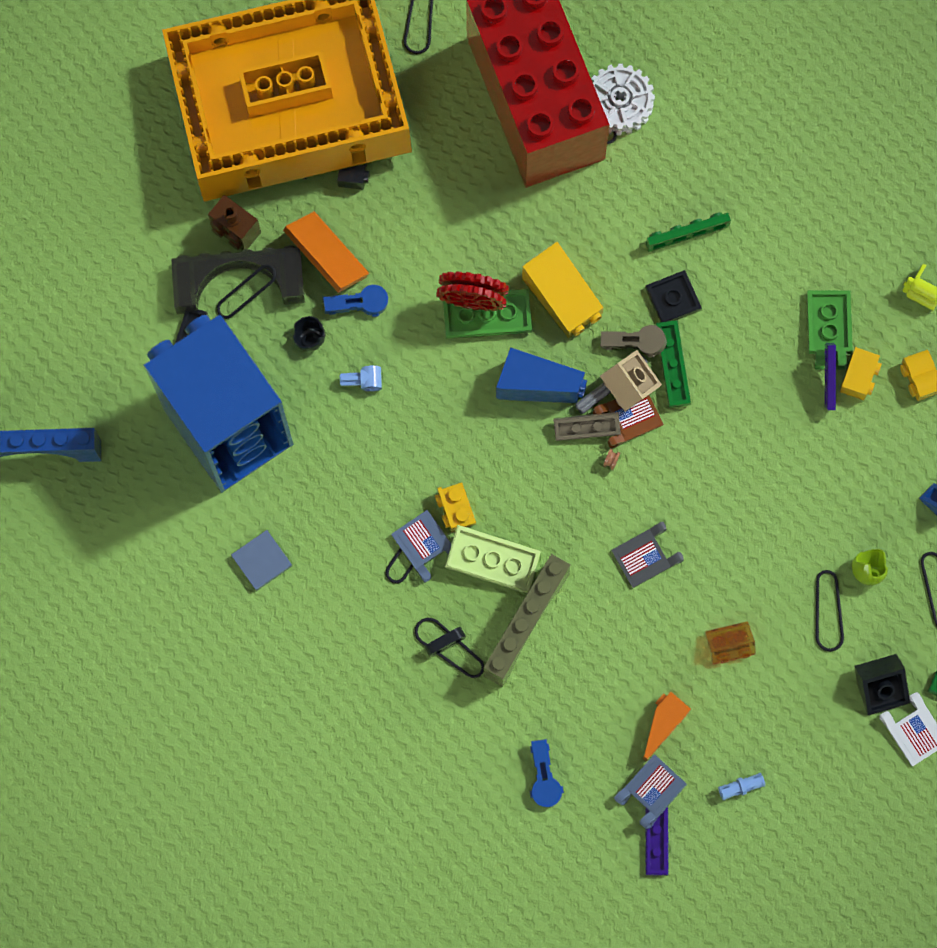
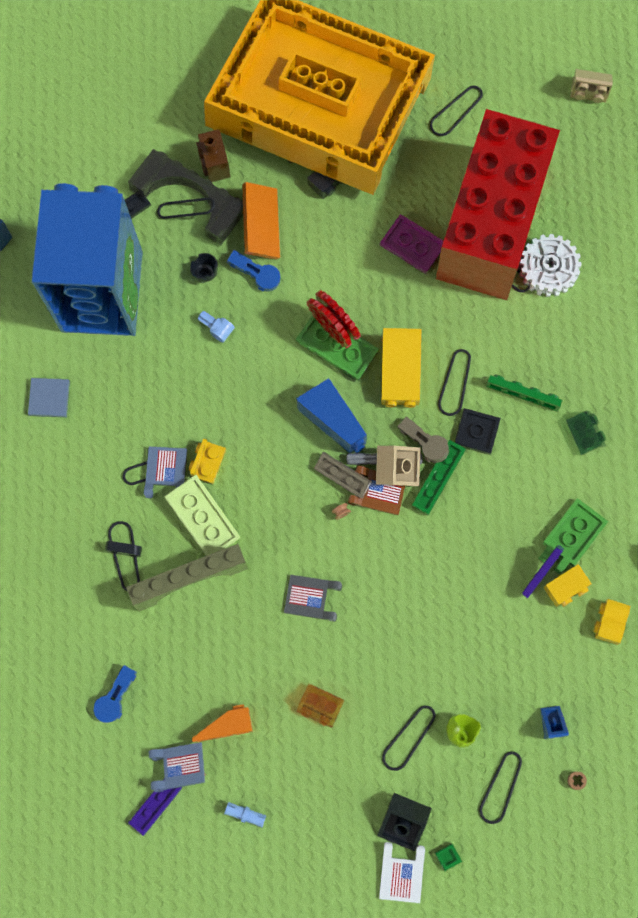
camera: 40 degrees right, 0 degrees up
(481, 170) = (412, 244): none -> magenta plate
(609, 273) = (446, 379): none -> black piece
(770, 226) = (586, 432): none -> clear green bracket

